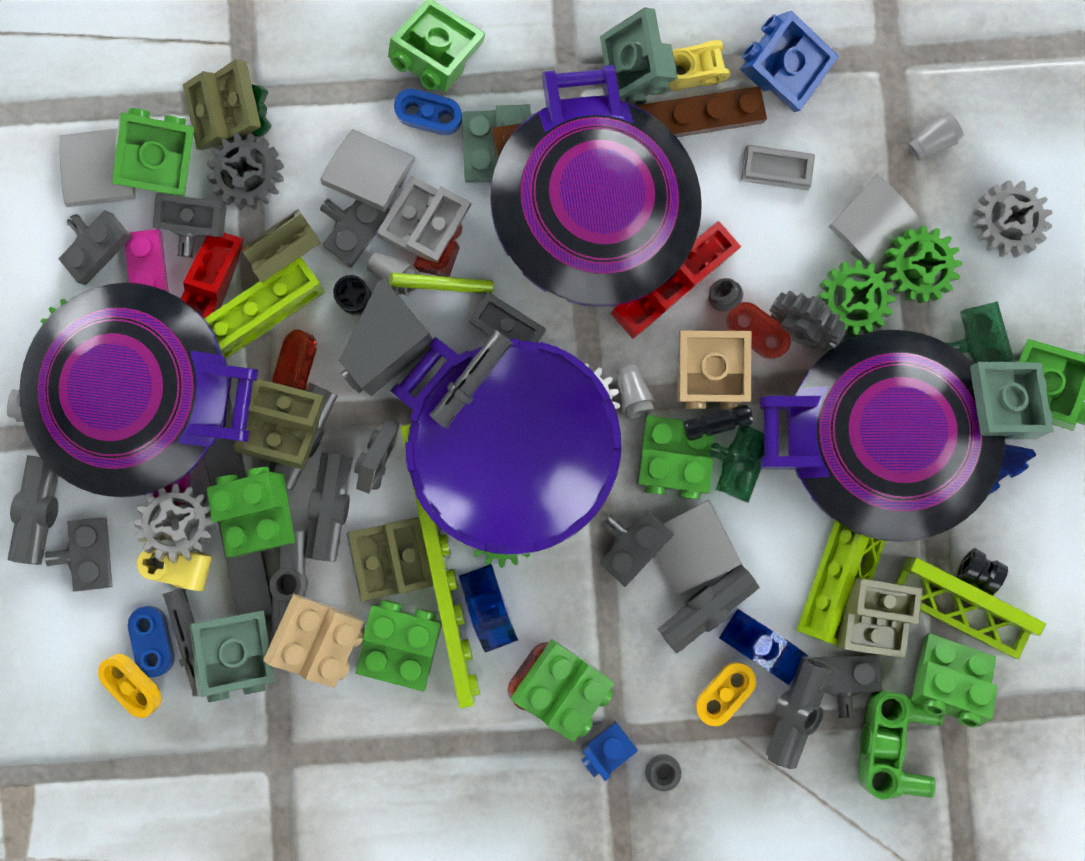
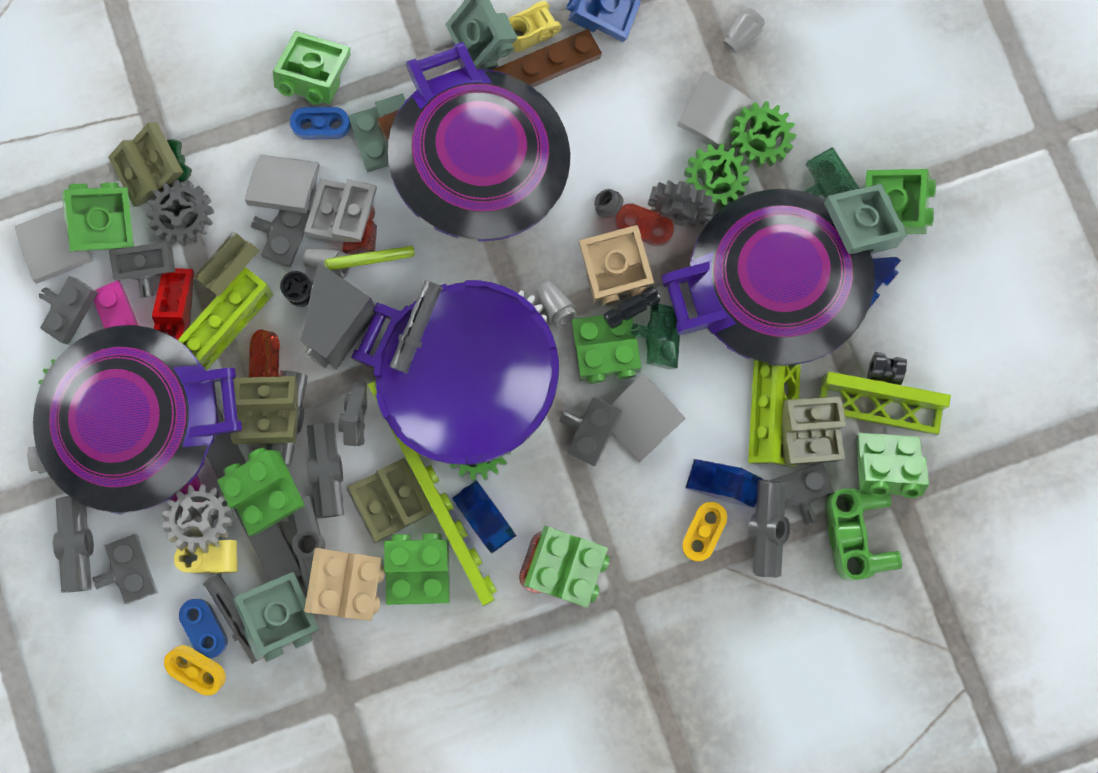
camera: 15 degrees left, 5 degrees down
(498, 315) = (422, 269): dark grey plate -> none
(607, 751) = (619, 608): blue bracket -> none
(668, 782) = (680, 609): dark grey plate -> none
(706, 256) = (582, 179): red slope -> none
(708, 608) = (669, 464): dark grey piece -> none
(778, 167) = (622, 89): light grey tile -> none
(1003, 204) = (831, 89): light grey gear -> none

